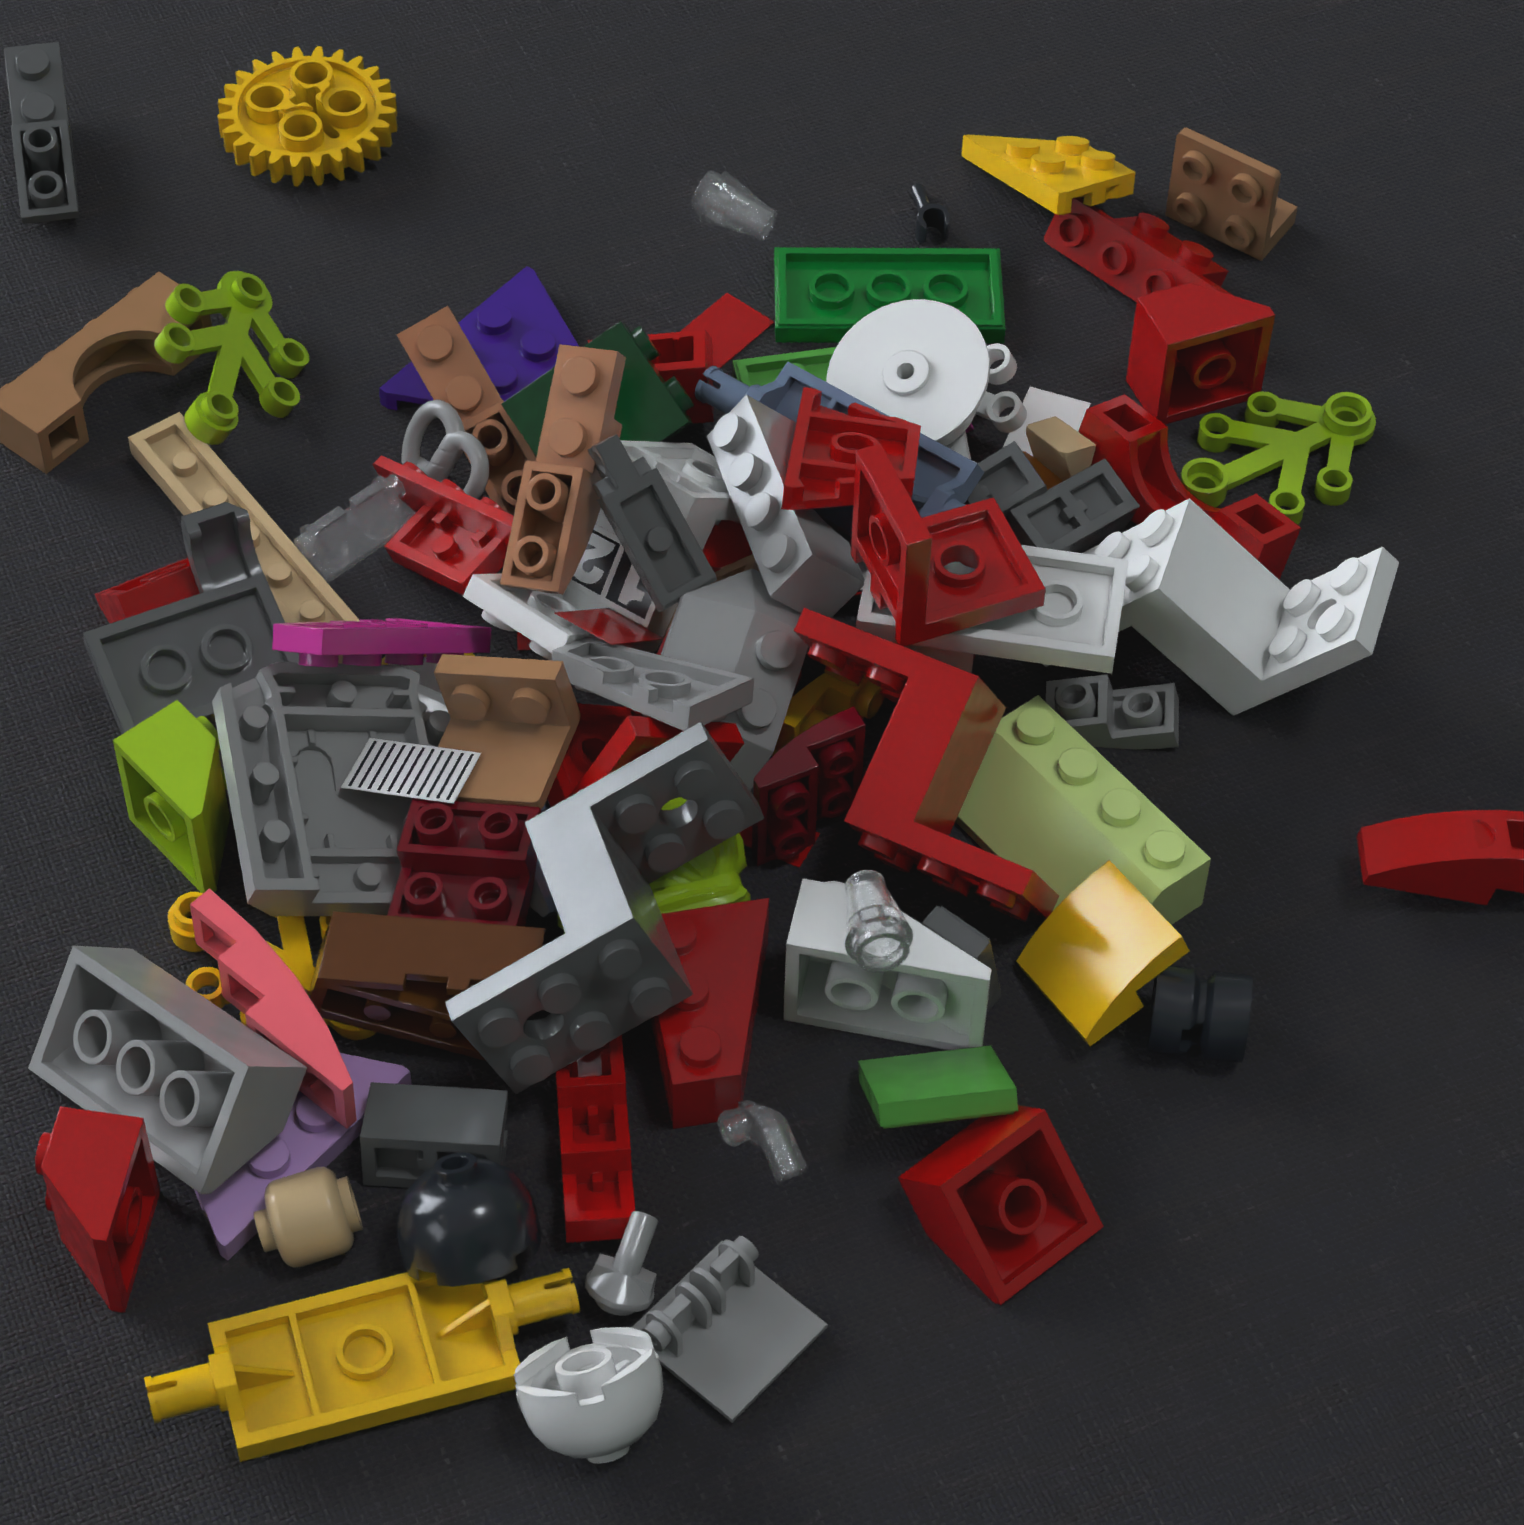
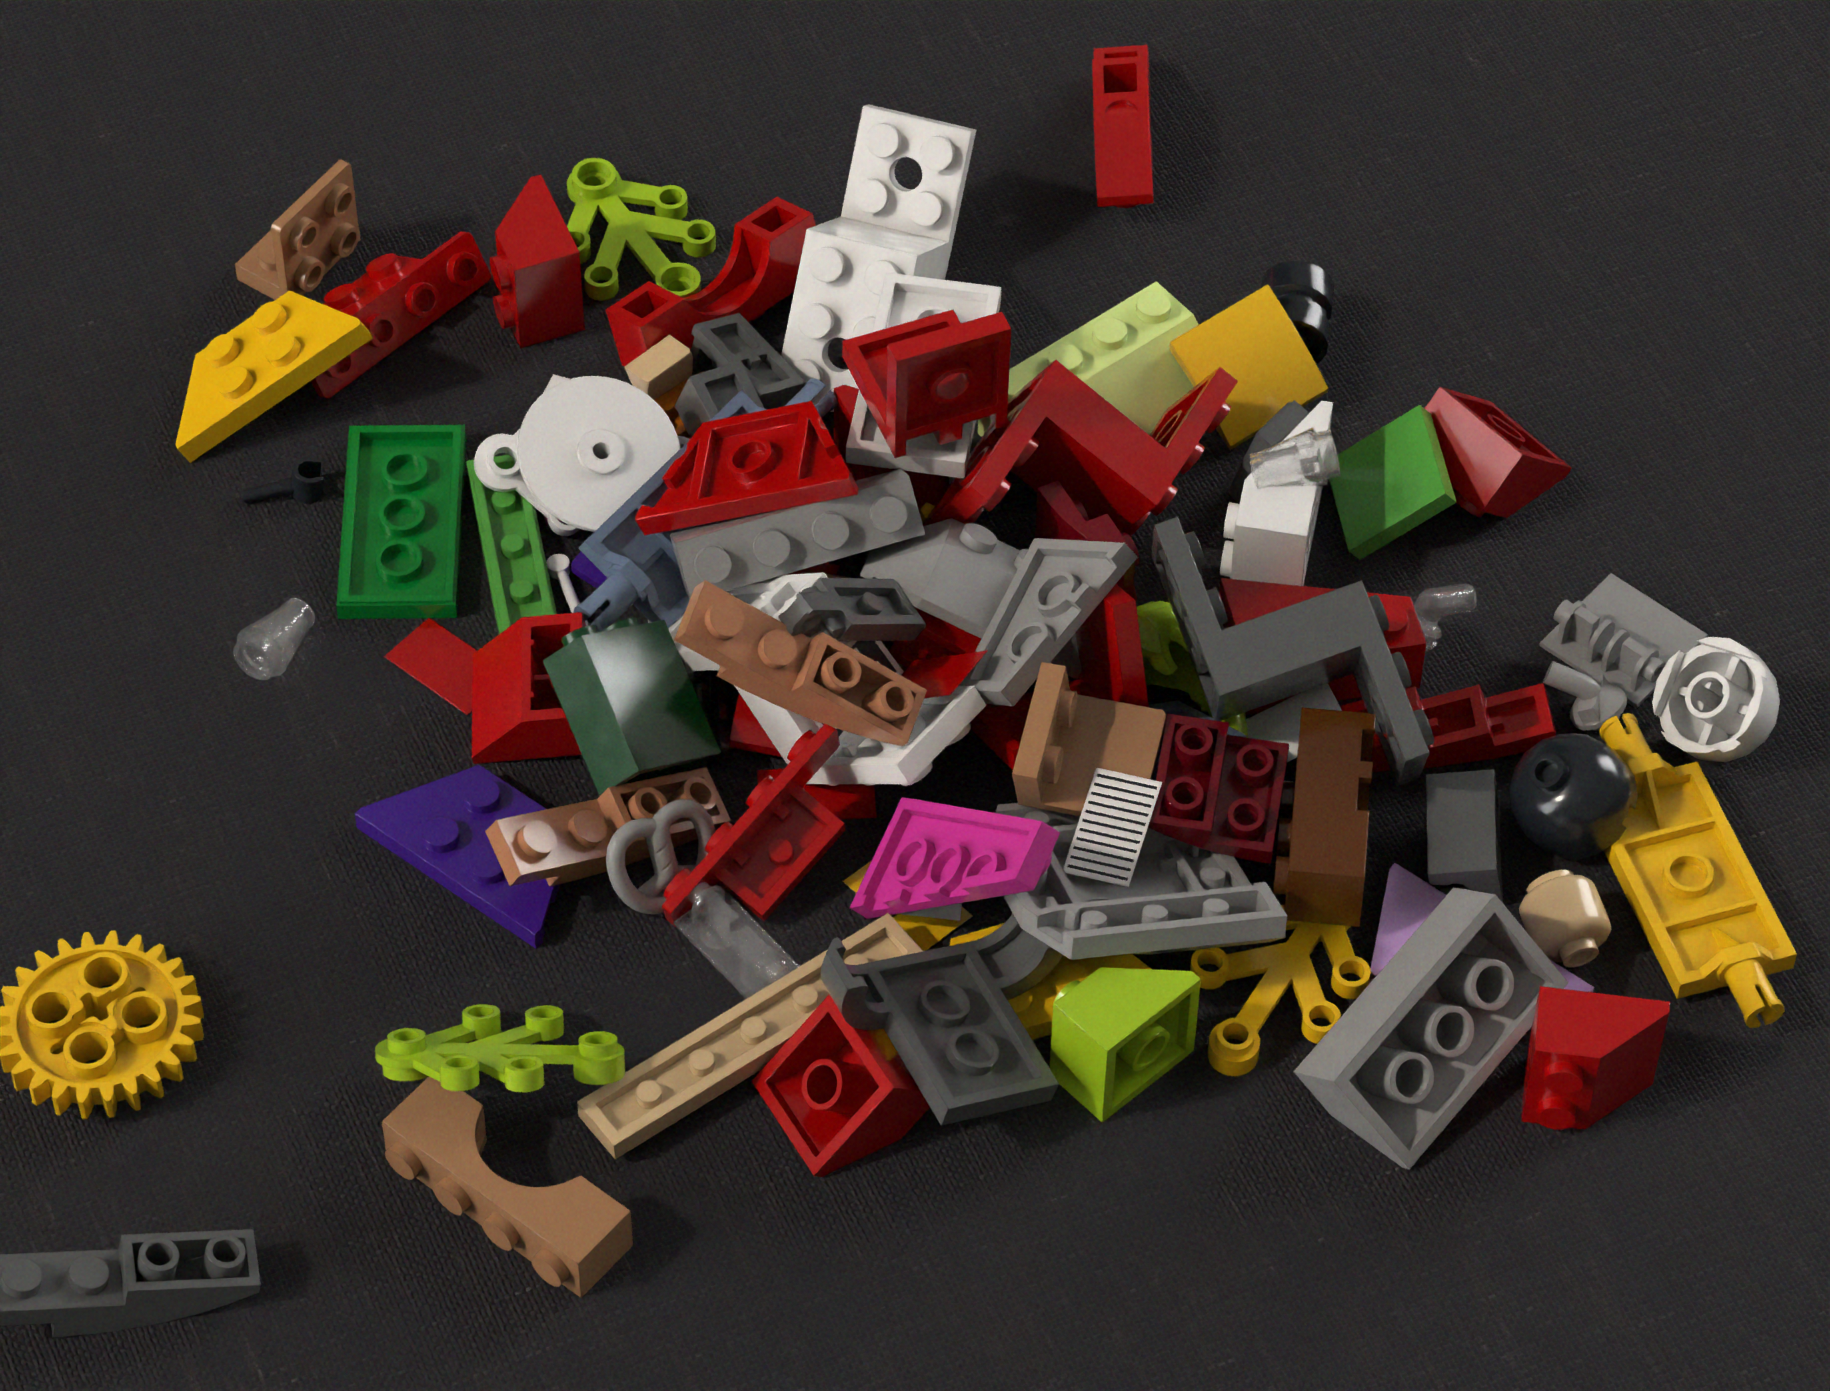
camera: 90 degrees left, 0 degrees up
(274, 1003) = (1357, 937): coral slope -> none

